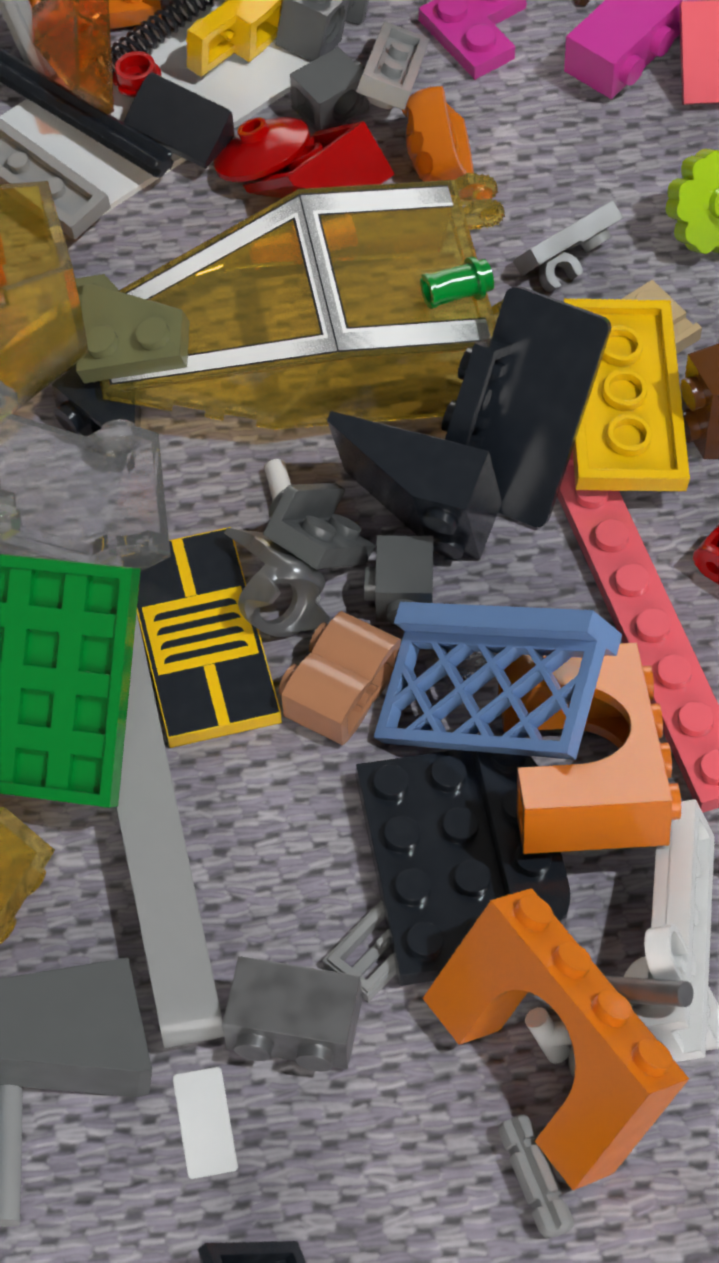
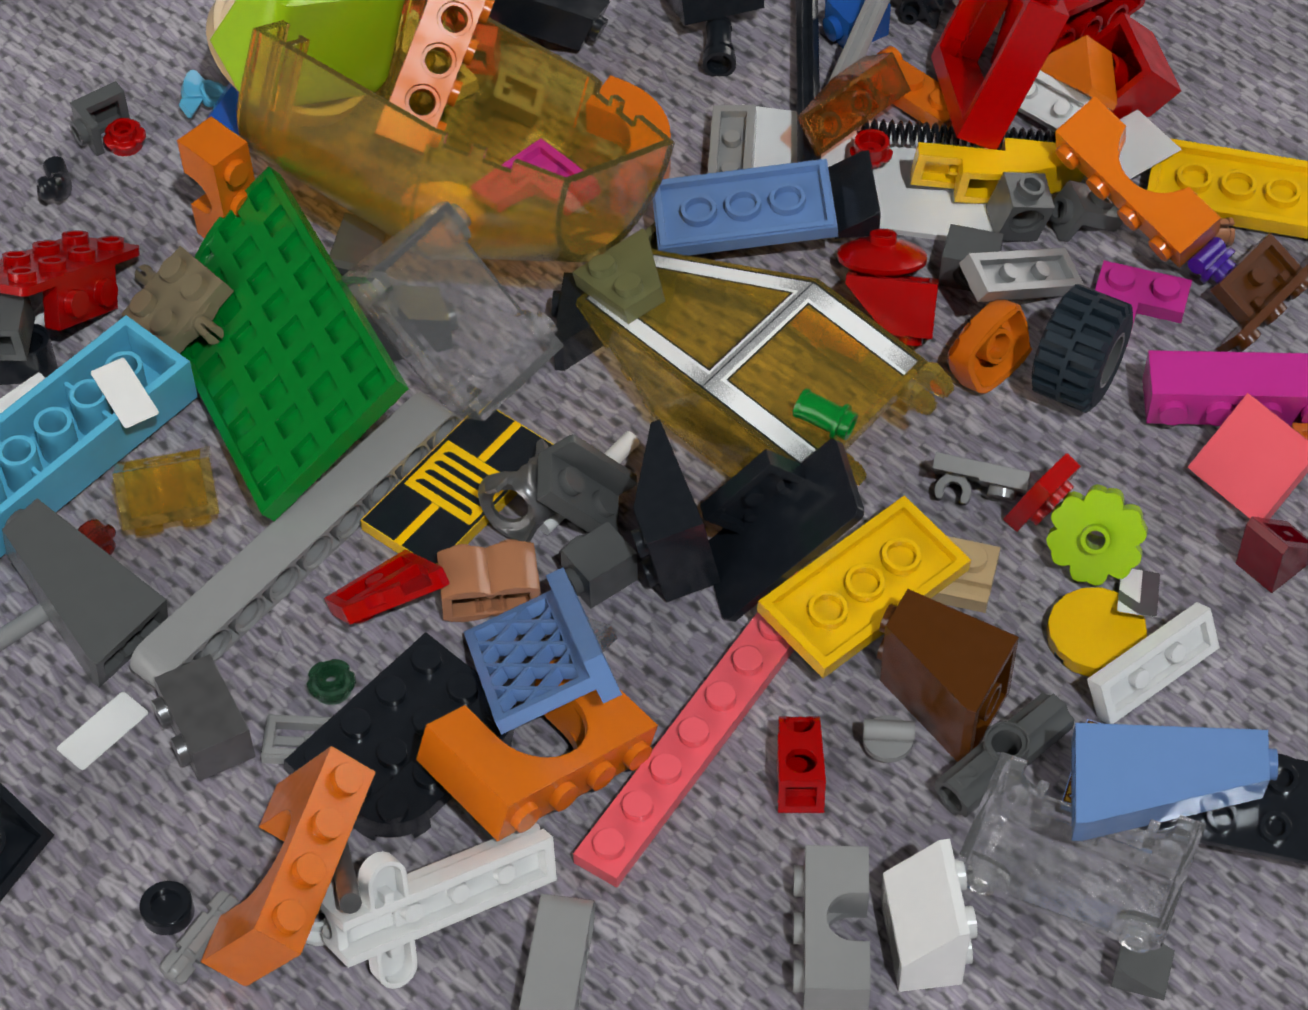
camera: 50 degrees right, 5 degrees down
(129, 195) = (745, 208): none -> medium blue tile
(277, 761) = (385, 587): none -> red wing
(333, 895) = (333, 691): none -> clear green plate
(473, 1187) = (167, 907): none -> black tile
(521, 76) = (1082, 348): none -> black wheel
(642, 196) = (1044, 494): none -> red wing

